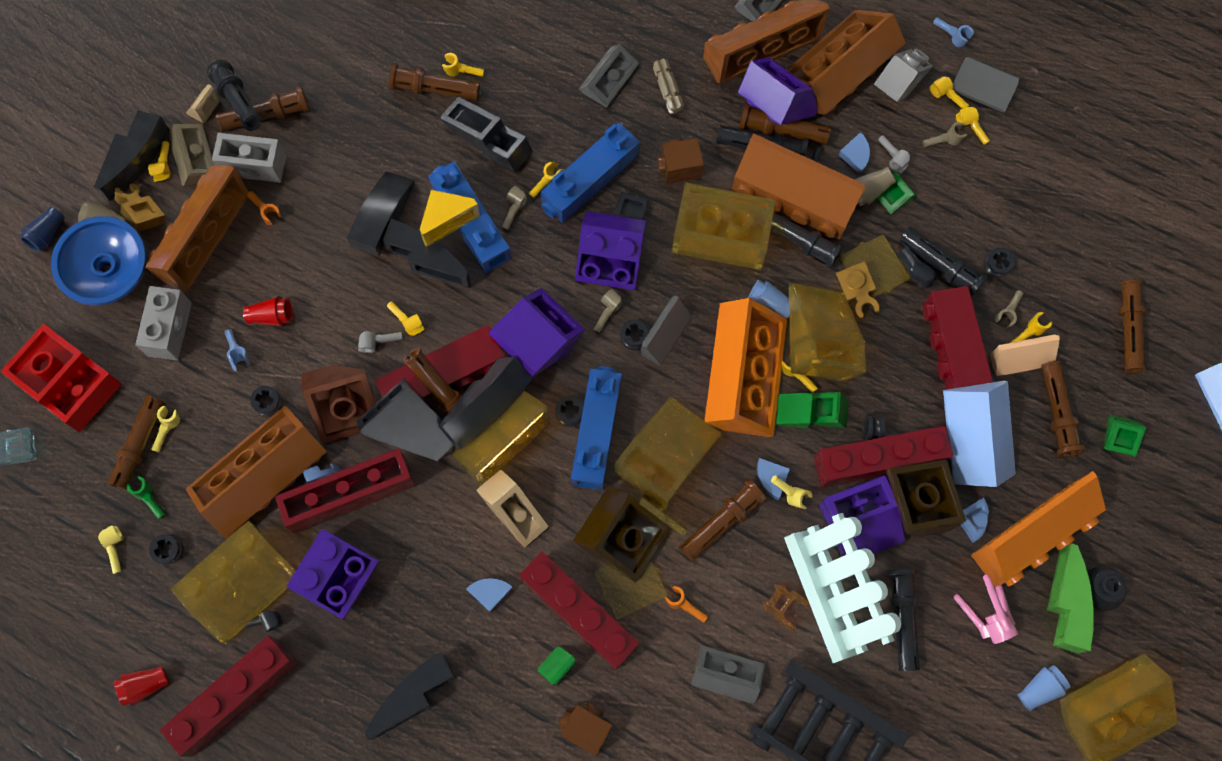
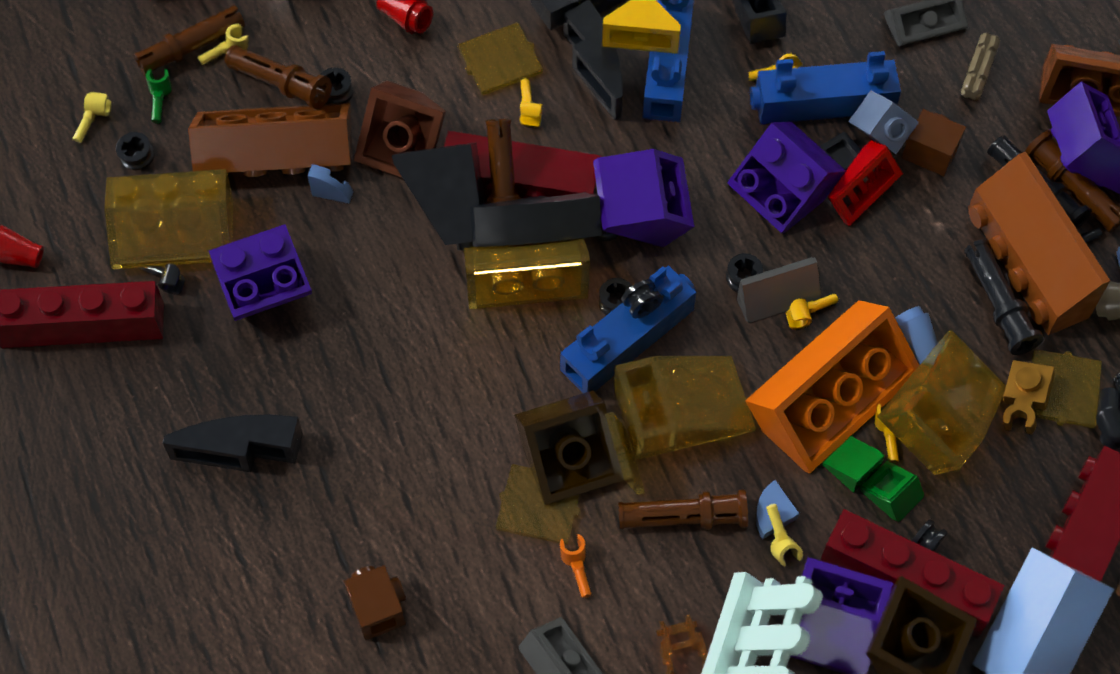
camera: 40 degrees right, 10 degrees down
(235, 421) = (291, 79): none -> reddish brown pin
(236, 352) = (345, 25): medium blue hand -> none
(344, 491) = (337, 210): dark red brick -> none
(359, 299) = (500, 58): none -> clear yellow piece
(368, 340) = (476, 97): light grey hand -> none
(489, 592) = (394, 406): medium blue tile -> none
(512, 508) = (481, 344): tan slope -> none
(519, 200) = (732, 72): dark tan hand -> none
(557, 666) = (399, 526): green slope -> none
(578, 610) = (464, 486): dark red brick -> none
(596, 405) = (642, 298): none -> black bush
(613, 303) = (747, 230): dark tan hand -> none
(644, 170) = (883, 121): none -> sand blue brick
(661, 218) = (884, 175): none -> red slope
(688, 337) = (799, 312): none -> yellow hand
(723, 226) = (923, 229): clear yellow slope -> none

